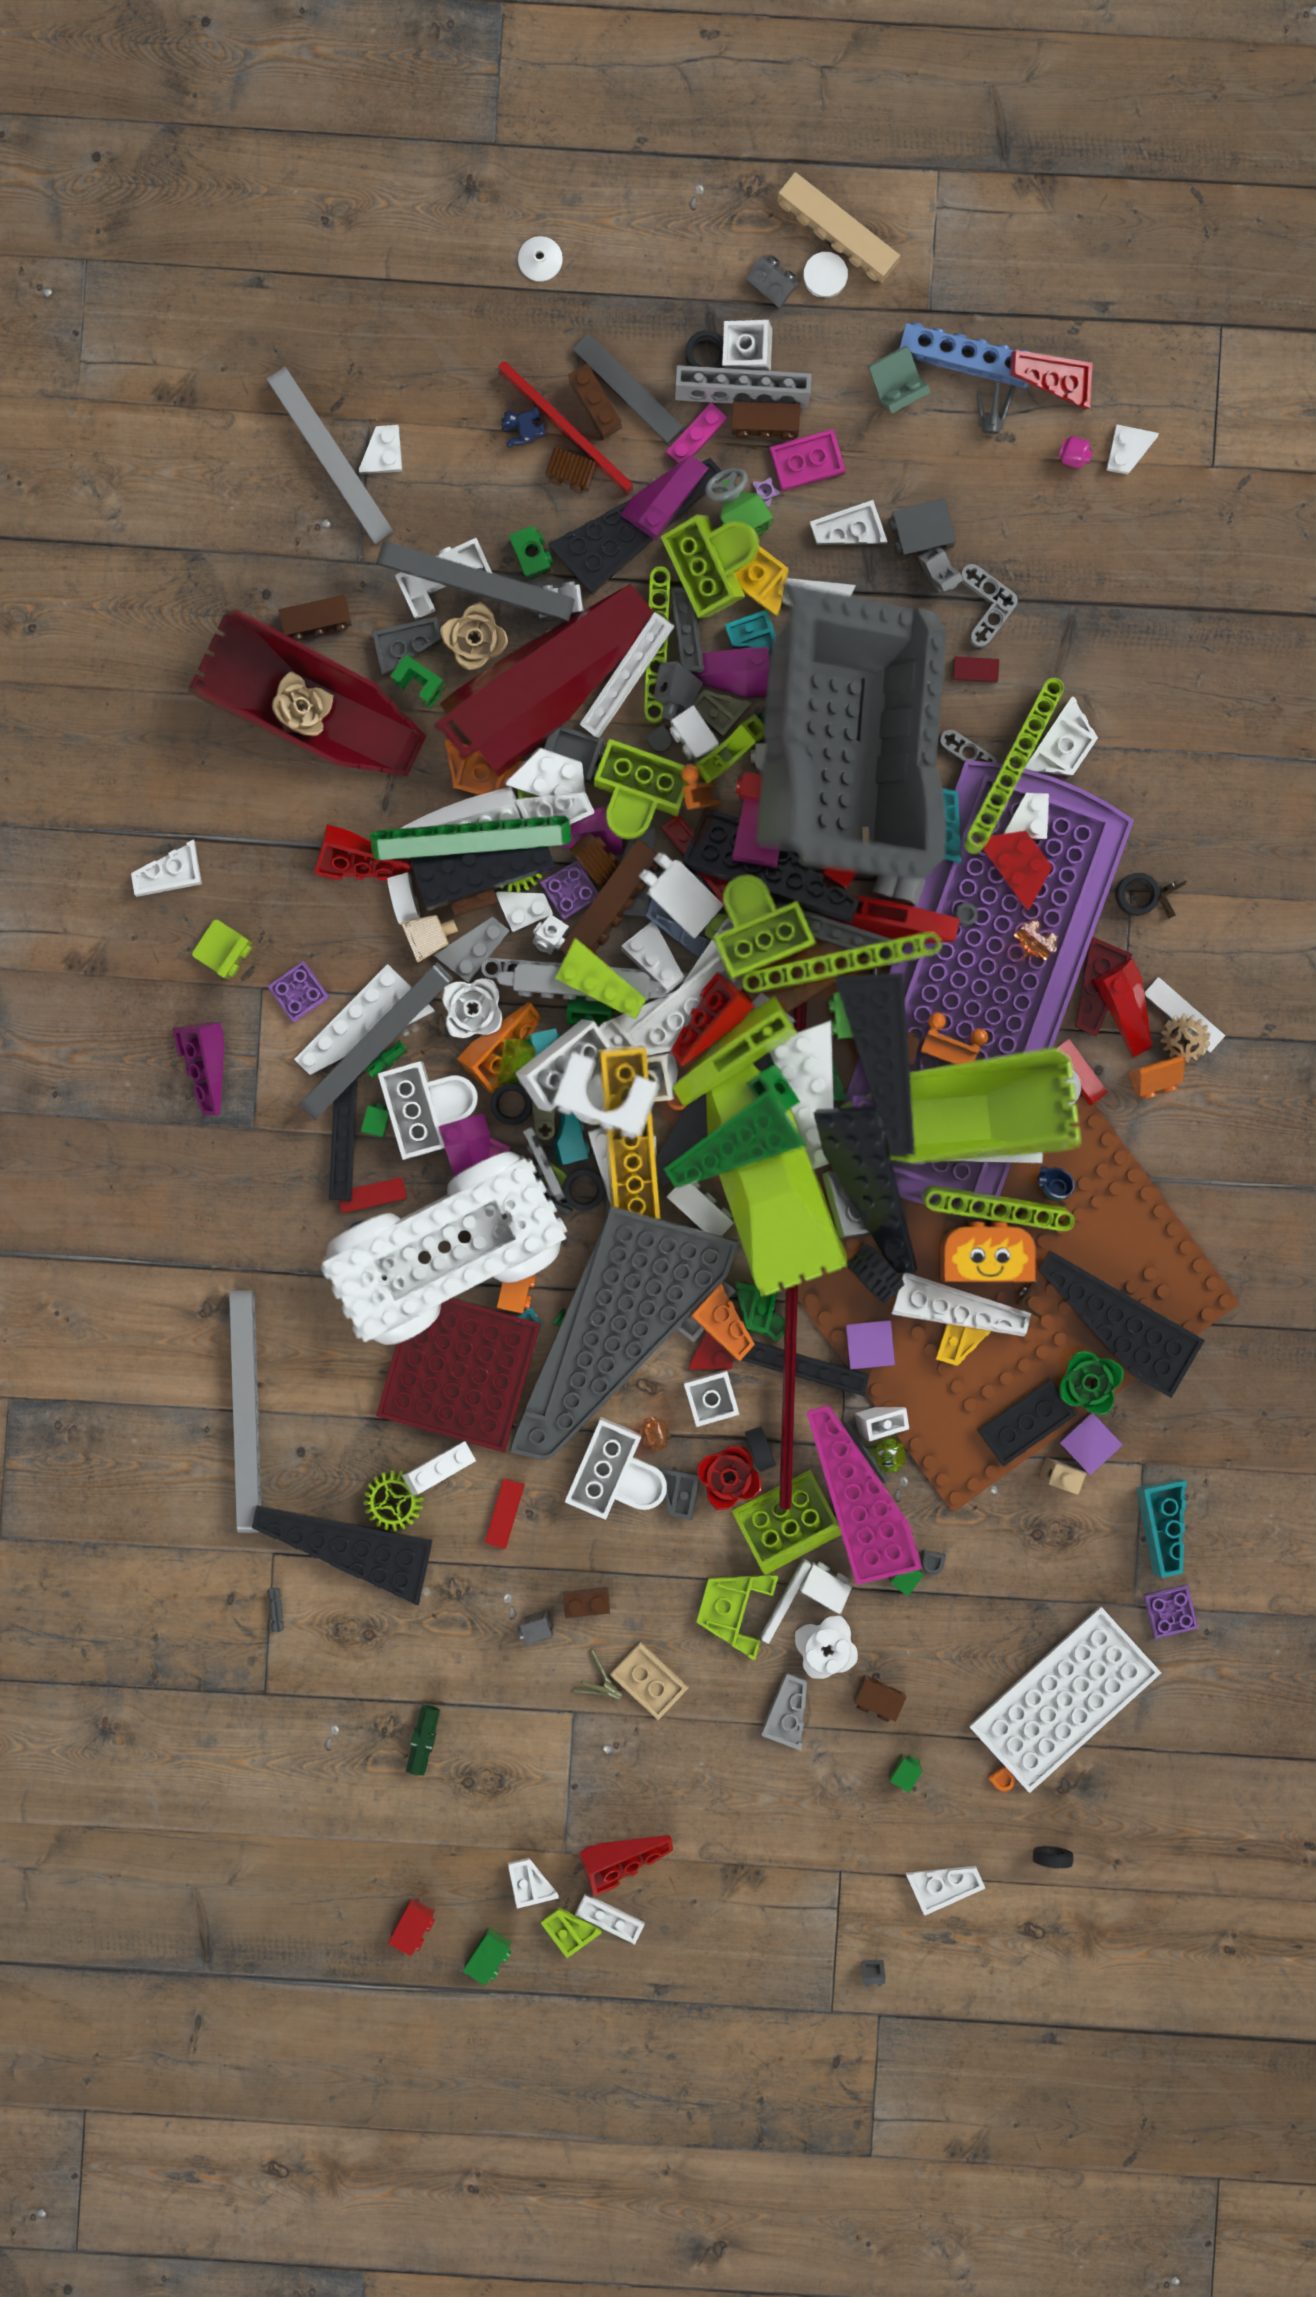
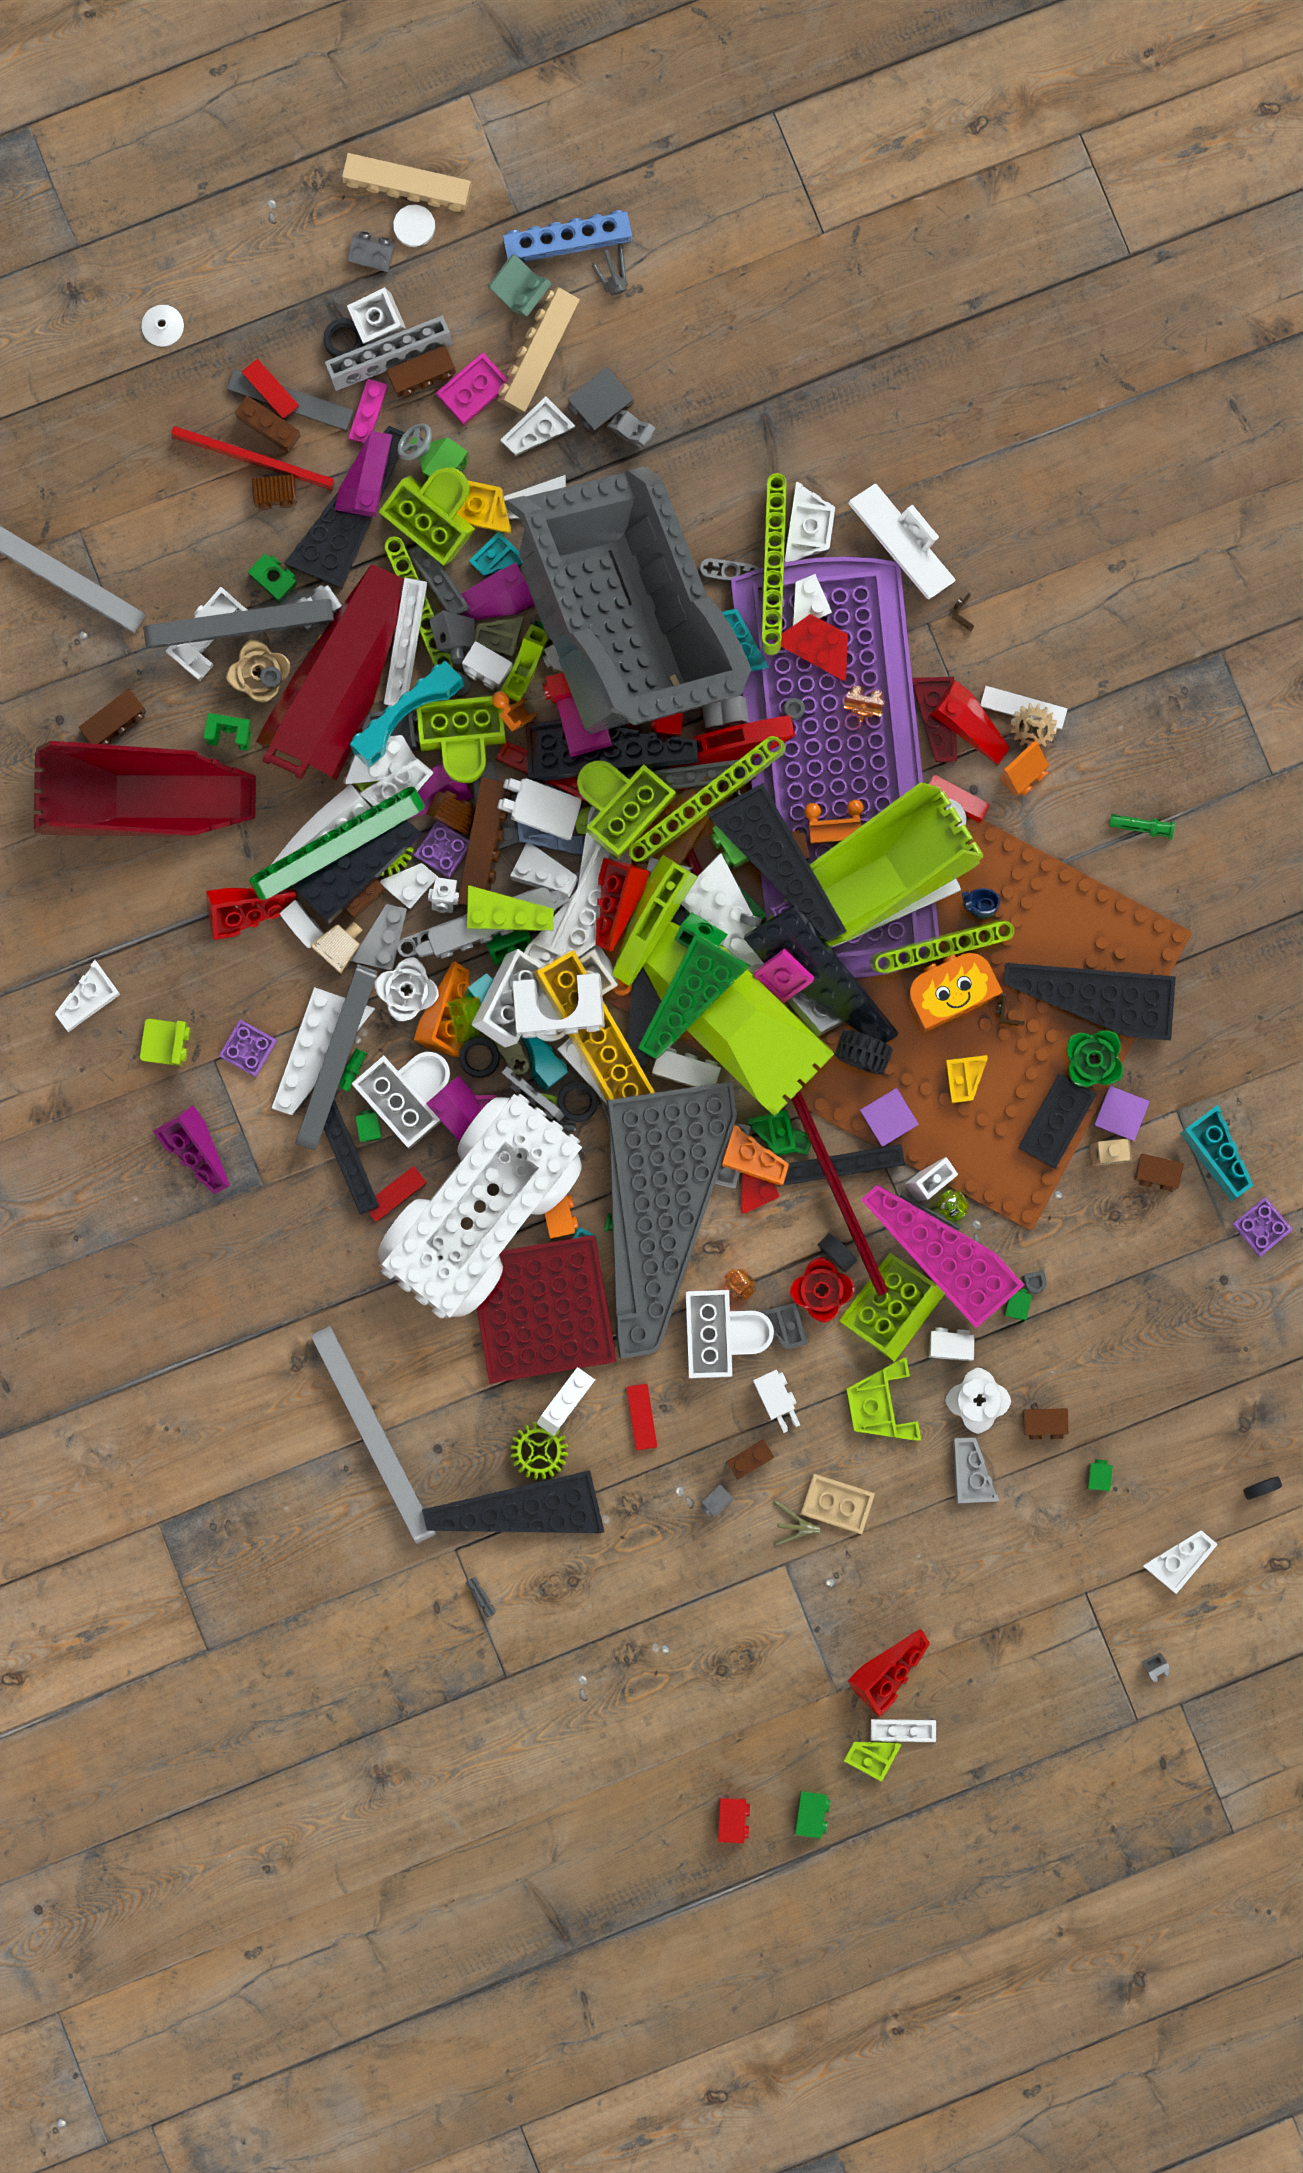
camera: 30 degrees left, 5 degrees down
(312, 702) = (137, 801): tan brick -> none
(383, 451) = (104, 551): white wing -> none
(404, 639) = (194, 706): dark grey wing -> none
(423, 1740) = (664, 1649): dark green piece -> none
(474, 773) = (314, 788): orange wing -> none
(483, 648) = (270, 677): none -> dark grey tile
(525, 423) = (215, 470): dark blue animal -> none
(529, 1884) = (817, 1732): white wing -> none
(613, 368) = (270, 389): none -> red tile
(638, 731) = (438, 685): none -> teal arch
(638, 1555) = (775, 1397): none -> white hinge
(711, 1398) = (773, 1228): white brick -> none
(766, 485) = (449, 426): lavender plate -> none
(785, 1600) = (923, 1375): white tile -> none
(828, 1098) = (750, 919): none -> dark grey tile
(834, 1167) = (783, 976): none -> dark pink plate
(887, 450) = (538, 349): none -> tan brick
(944, 1304) = (939, 1051): white wing -> none
(976, 669) = (703, 498): dark red tile -> none
(996, 607) = (695, 437): light grey beam -> none
(1002, 1779) = (1187, 1442): orange tile -> none
(1056, 375) = (653, 219): wing -> none
(1064, 1699) = (1207, 1346): white plate -> none
(1075, 452) = (699, 275): dark pink head -> none
(1099, 1515) = (1159, 1172): none -> reddish brown brick
(1128, 447) = (743, 251): white wing -> none
(1137, 911) = (933, 607): black tyre -> none
(1150, 800) = (905, 538): none -> white bracket
(1250, 1186) = (1152, 826): none -> green pin

